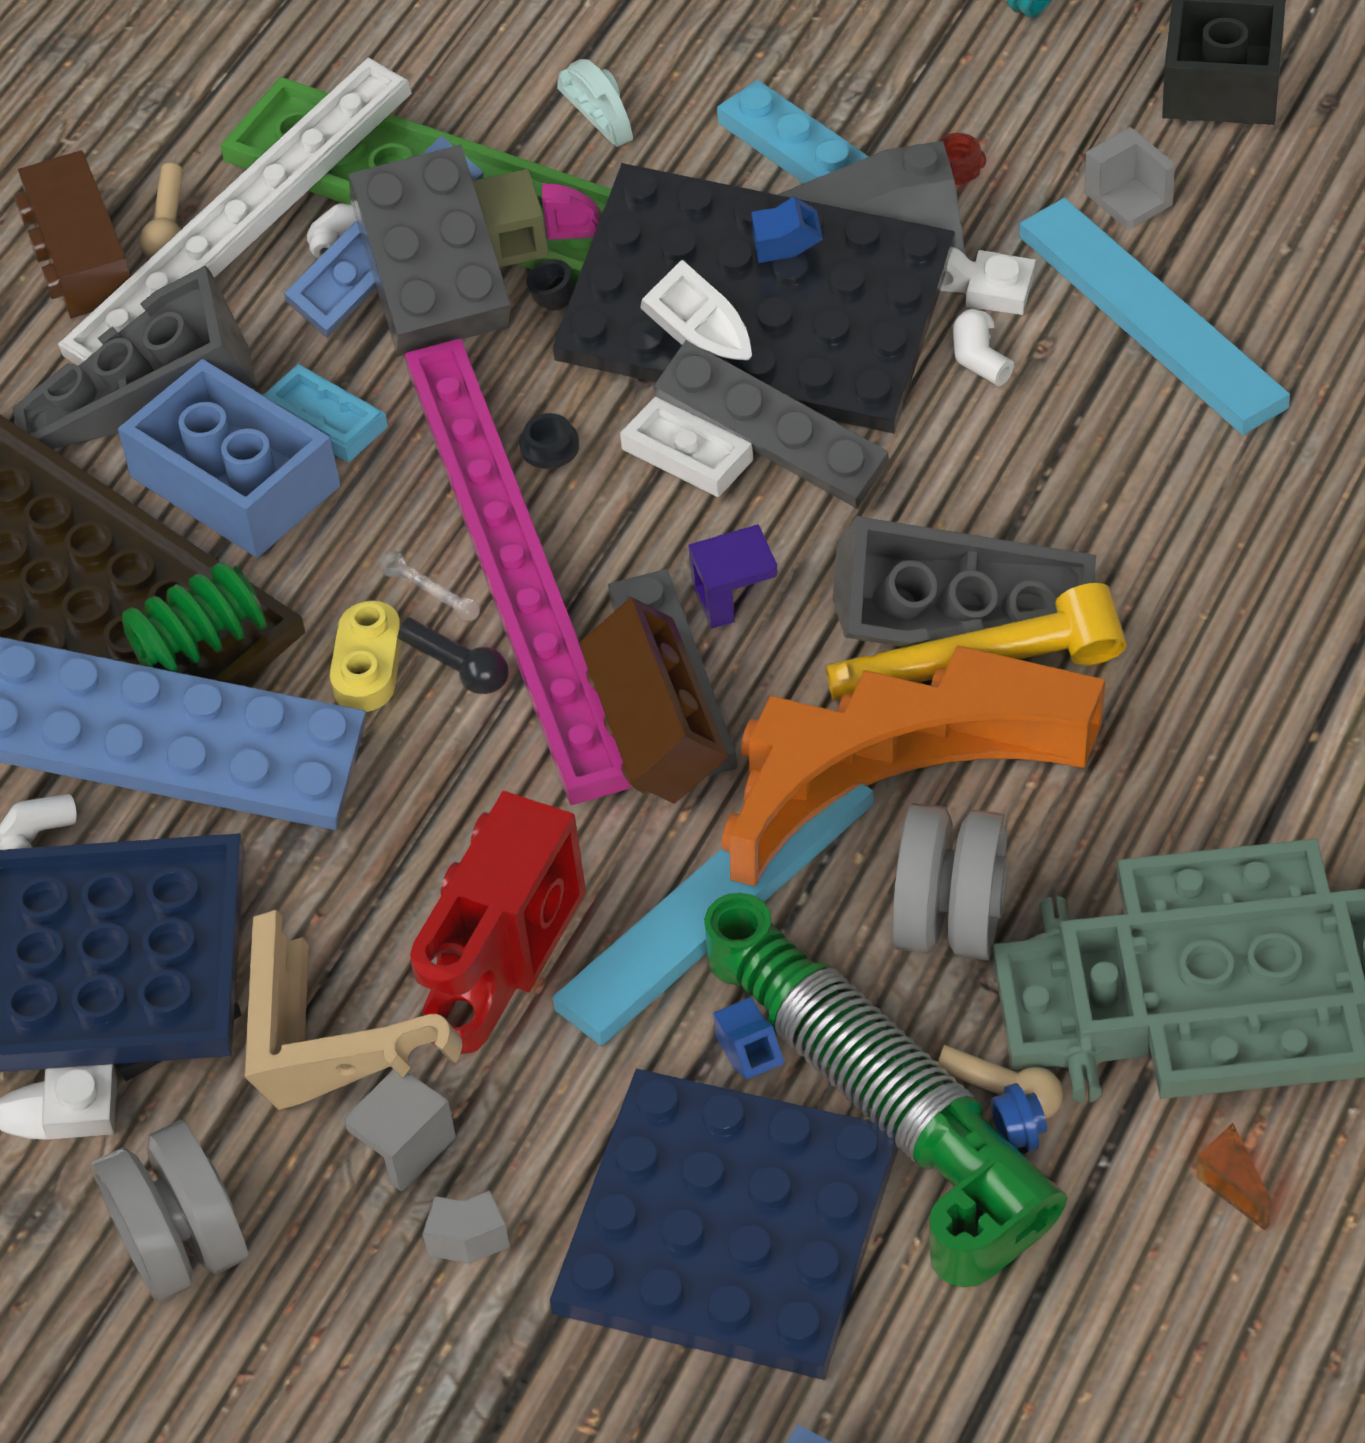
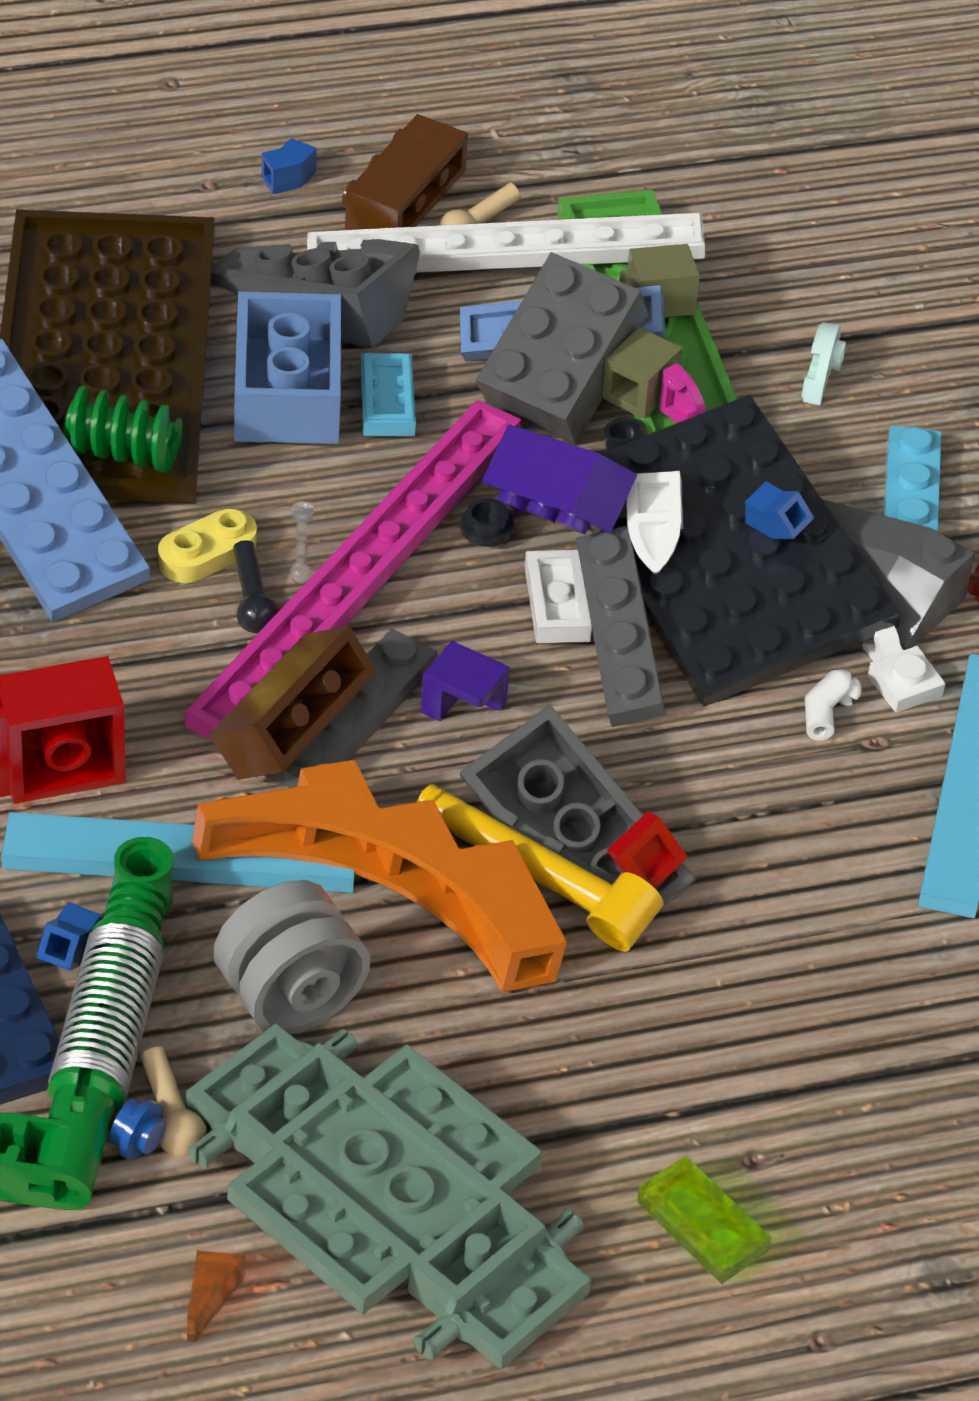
camera: 40 degrees right, 5 degrees down
(414, 126) = (671, 269): none -> olive brick
(587, 352) = (558, 481): none -> dark purple brick
(1056, 560) = (648, 850): none -> red plate

